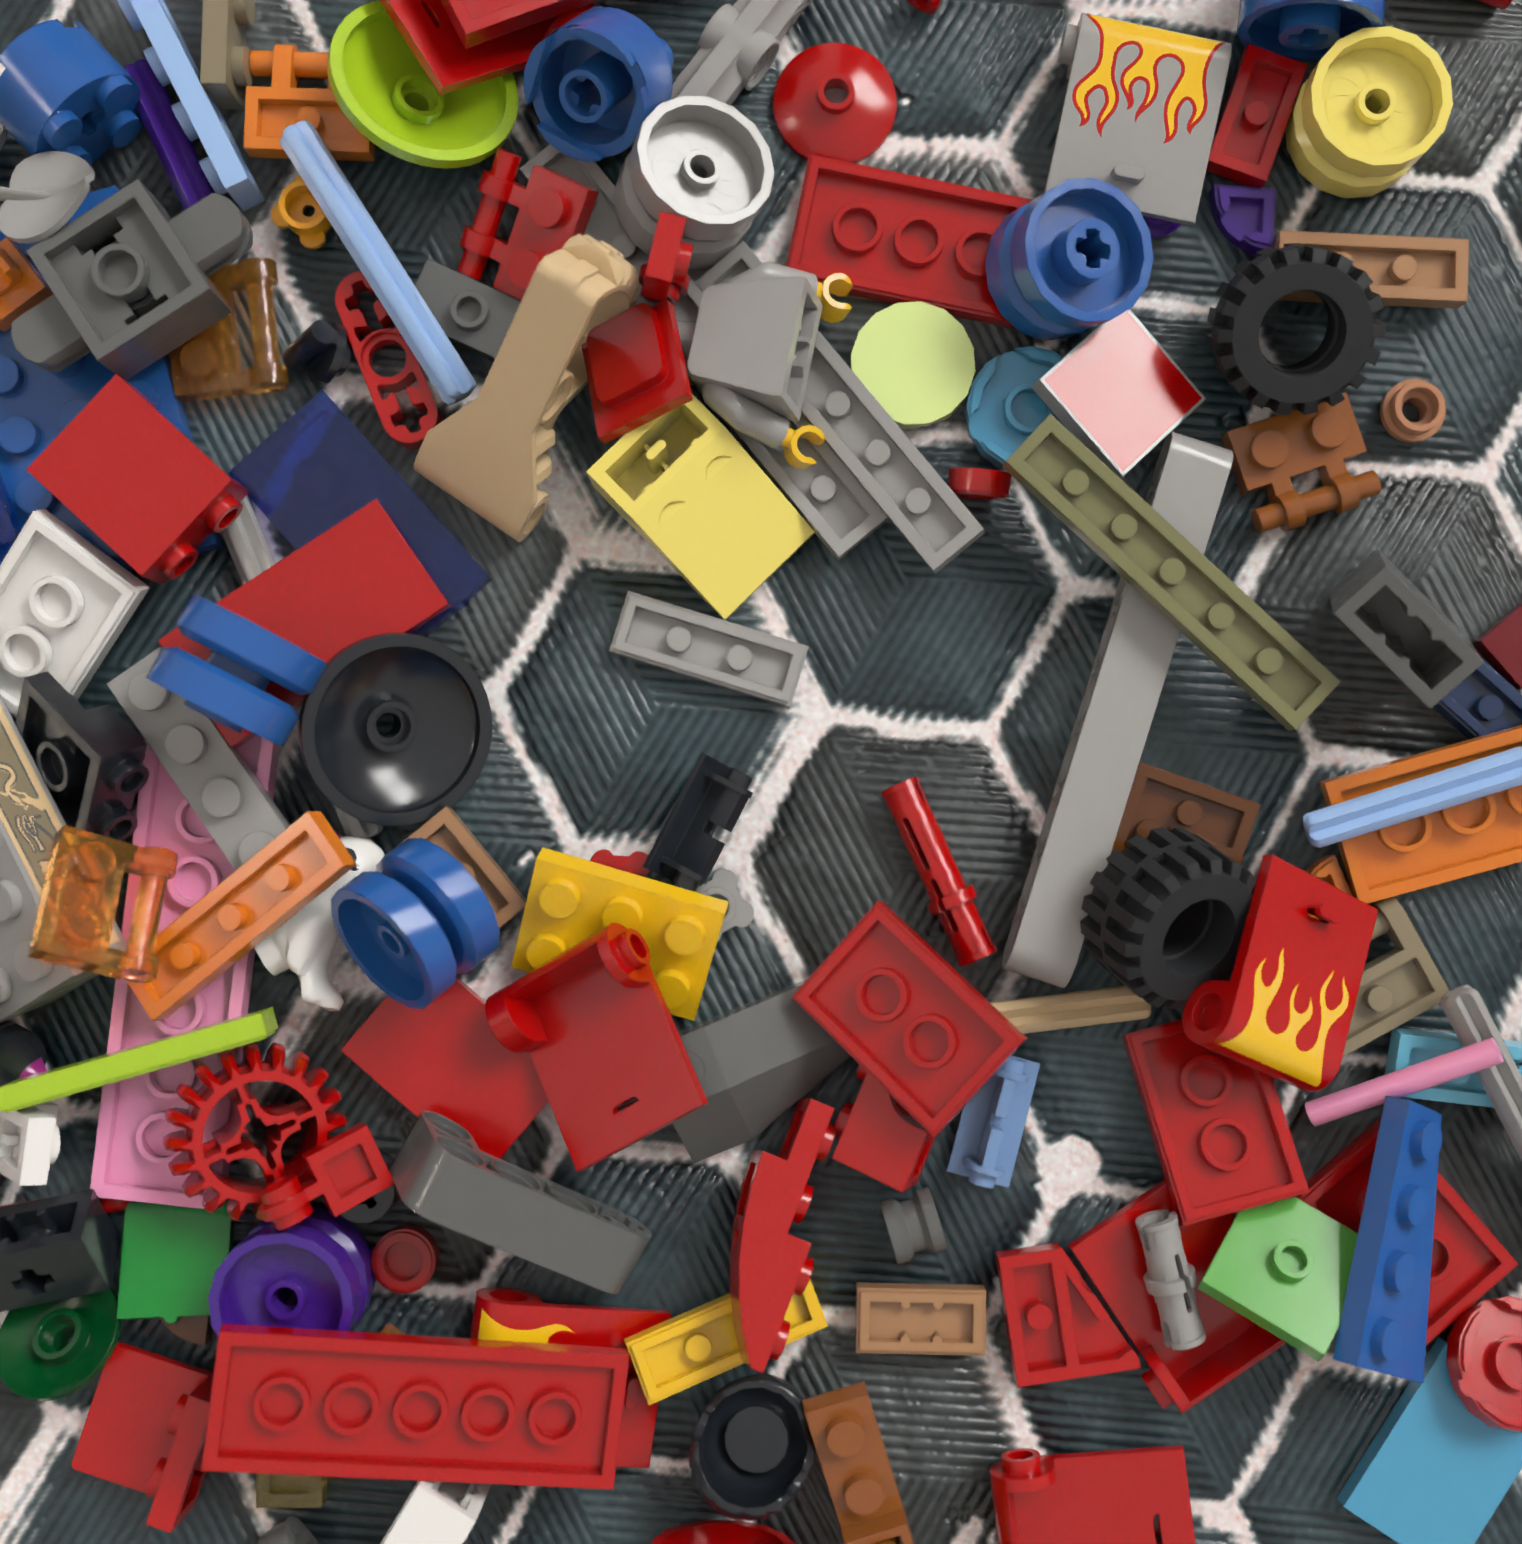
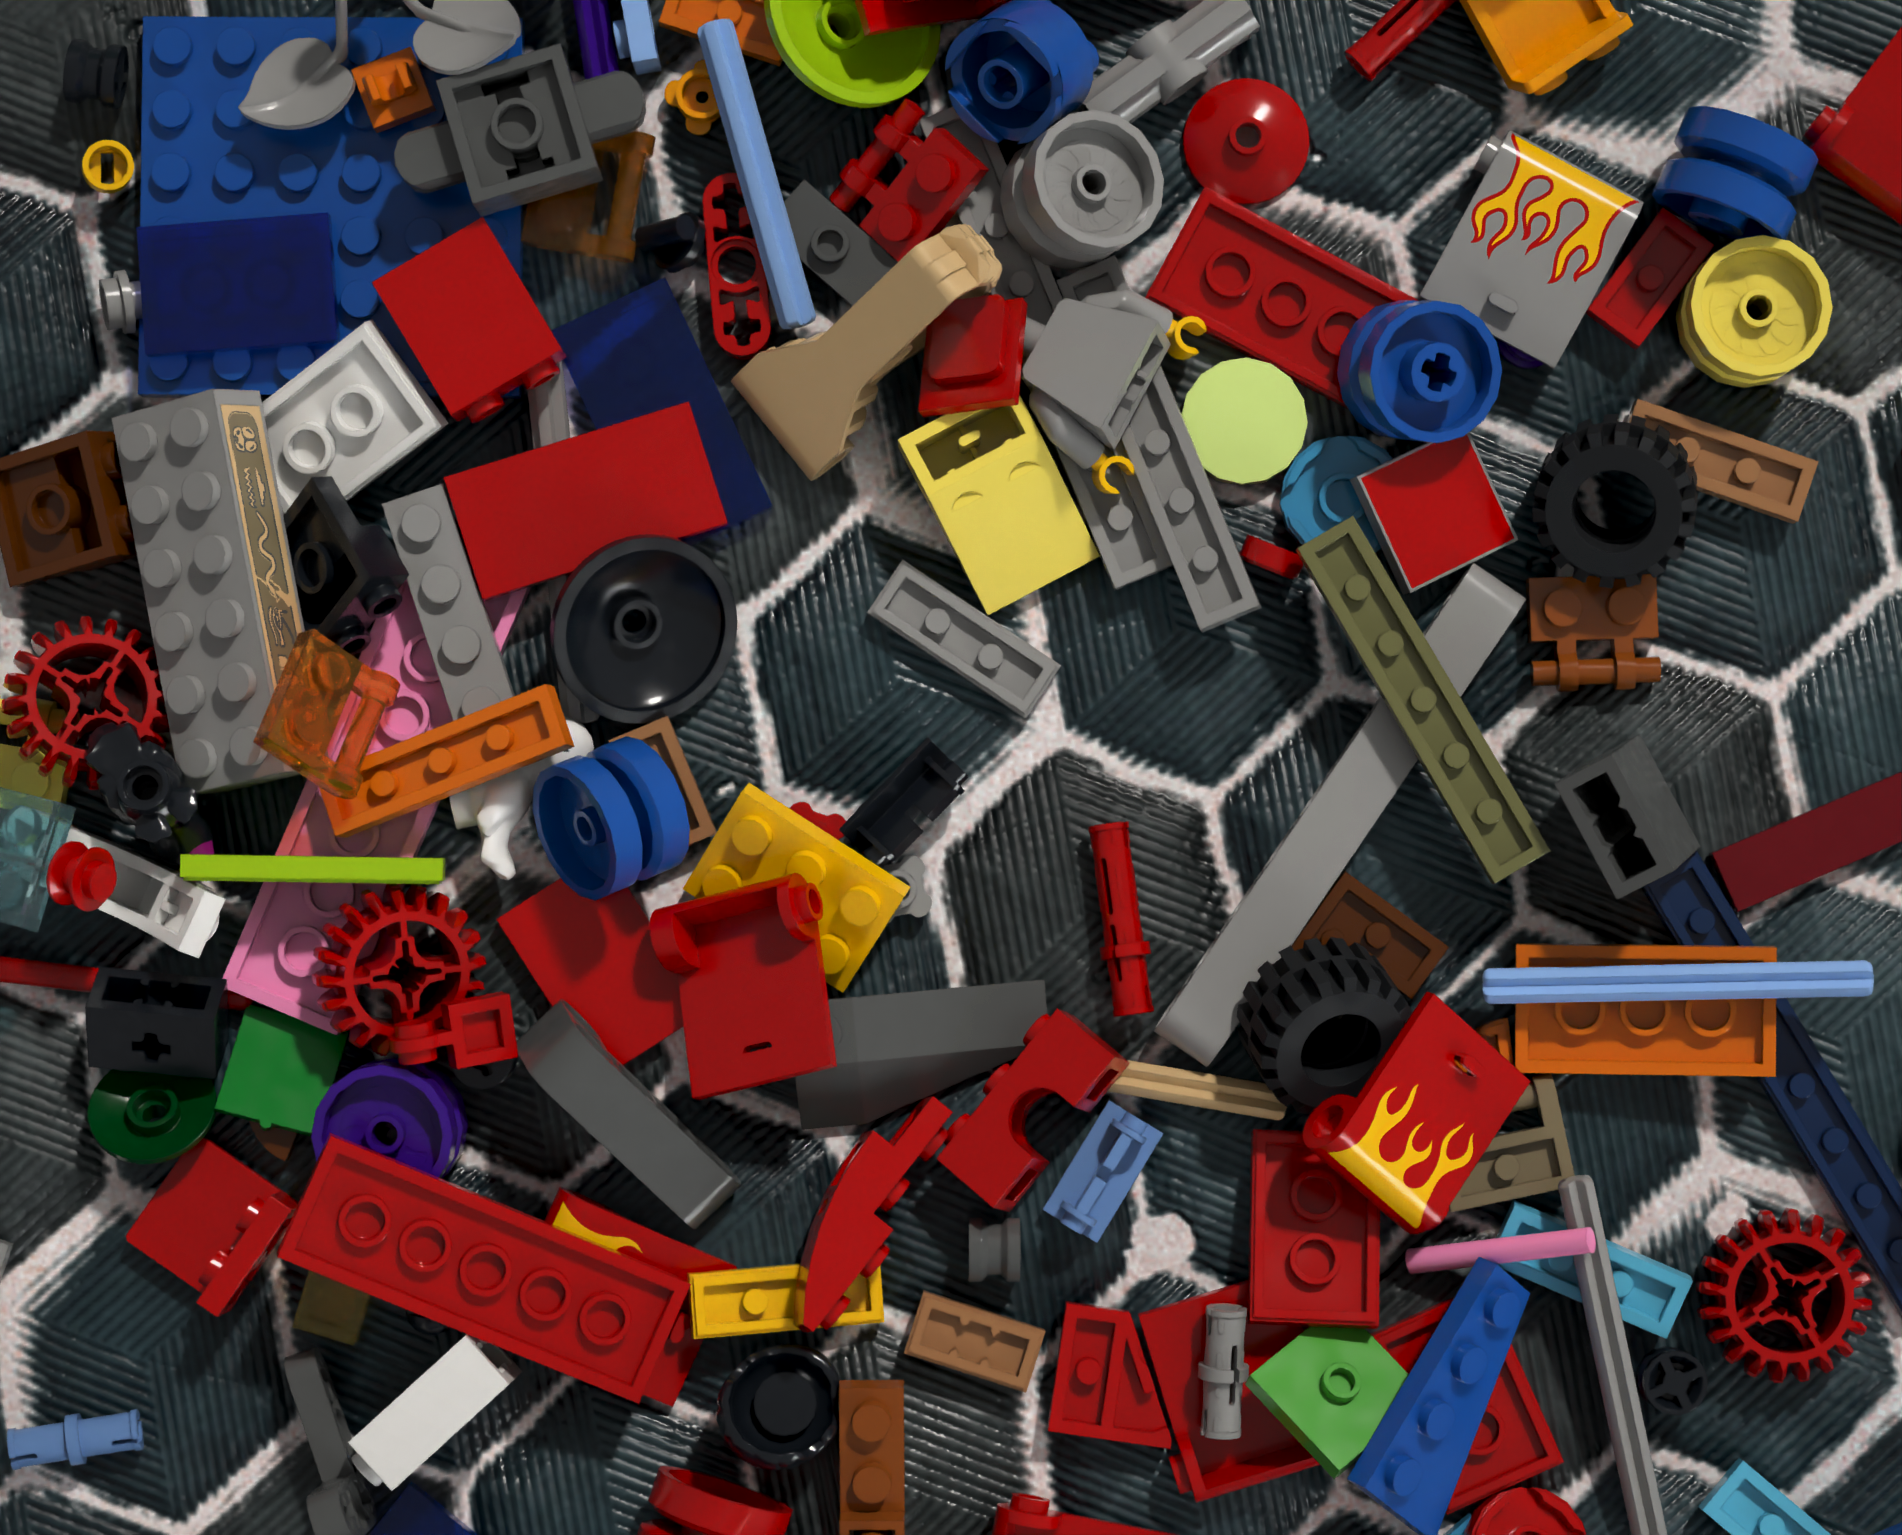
camera: 20 degrees right, 0 degrees up
(237, 671) = (514, 540): blue wheel -> none
(405, 1258) = (498, 1138): red tile -> none
(668, 262) = (1032, 264): red plate -> none
(908, 1018) = (1047, 1045): red tile -> none
(1244, 215) = (1613, 371): dark purple tile -> none
(1425, 398) = (1734, 601): nougat plate -> none

